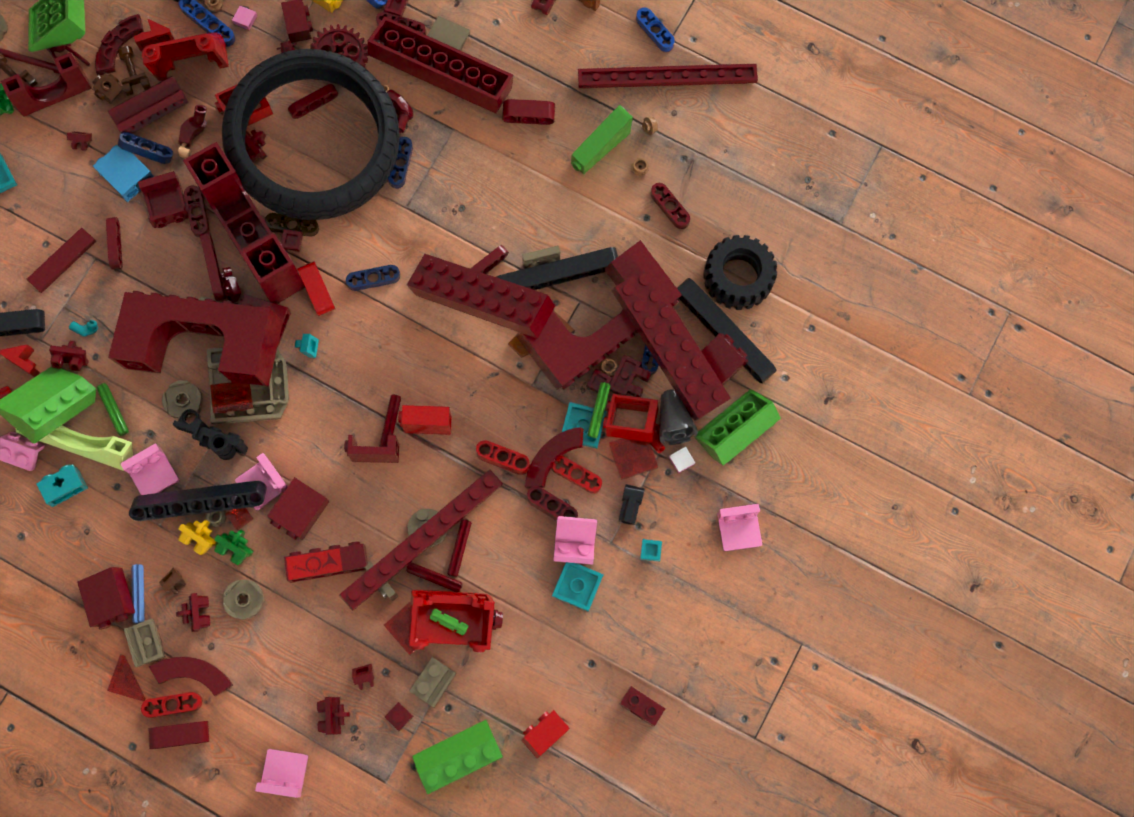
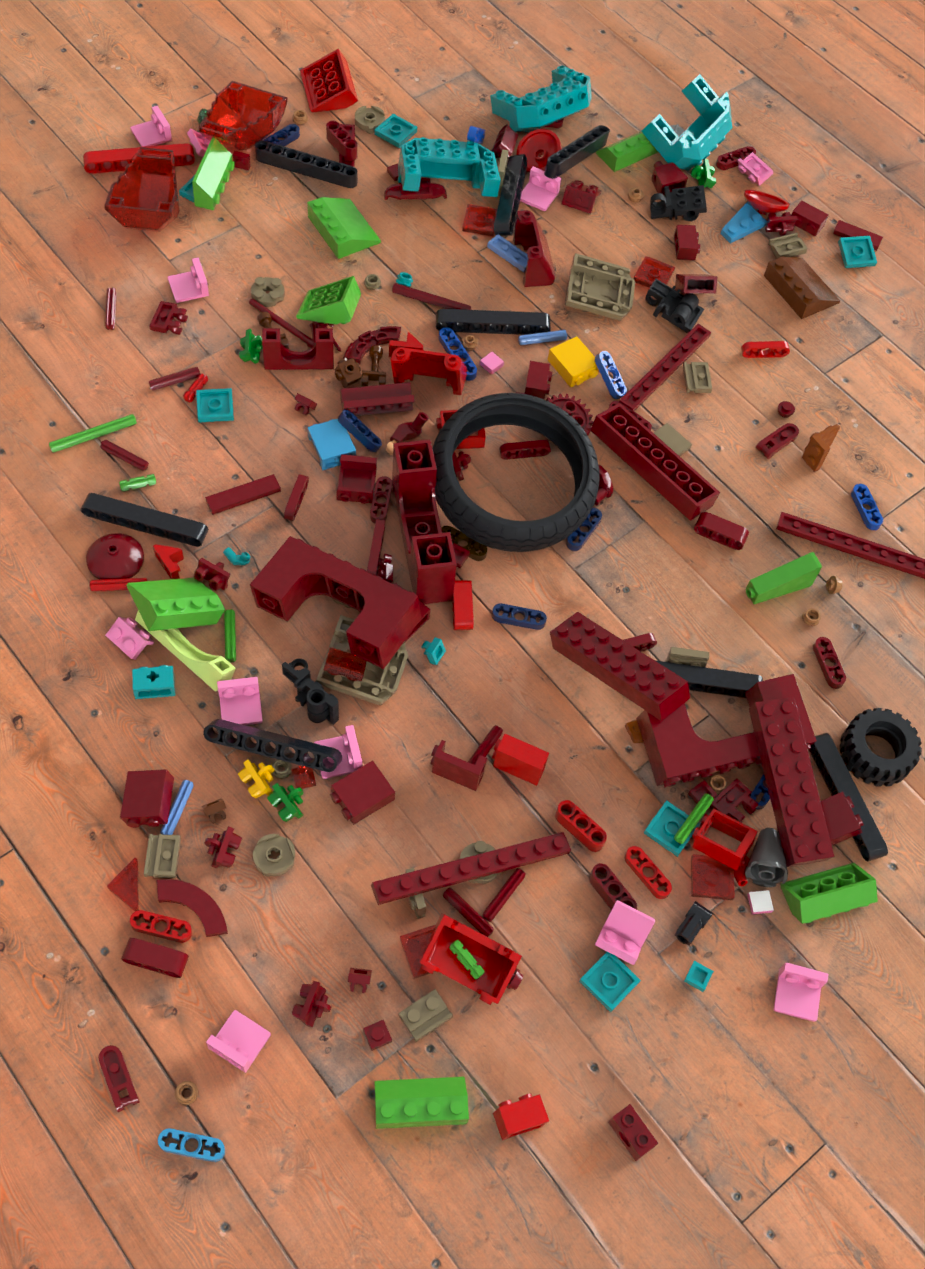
camera: 20 degrees right, 15 degrees down
(174, 393) = (295, 642): dark tan plate -> none
(325, 563) = (368, 853): brick -> none
(557, 446) = (637, 836): dark red tile -> none

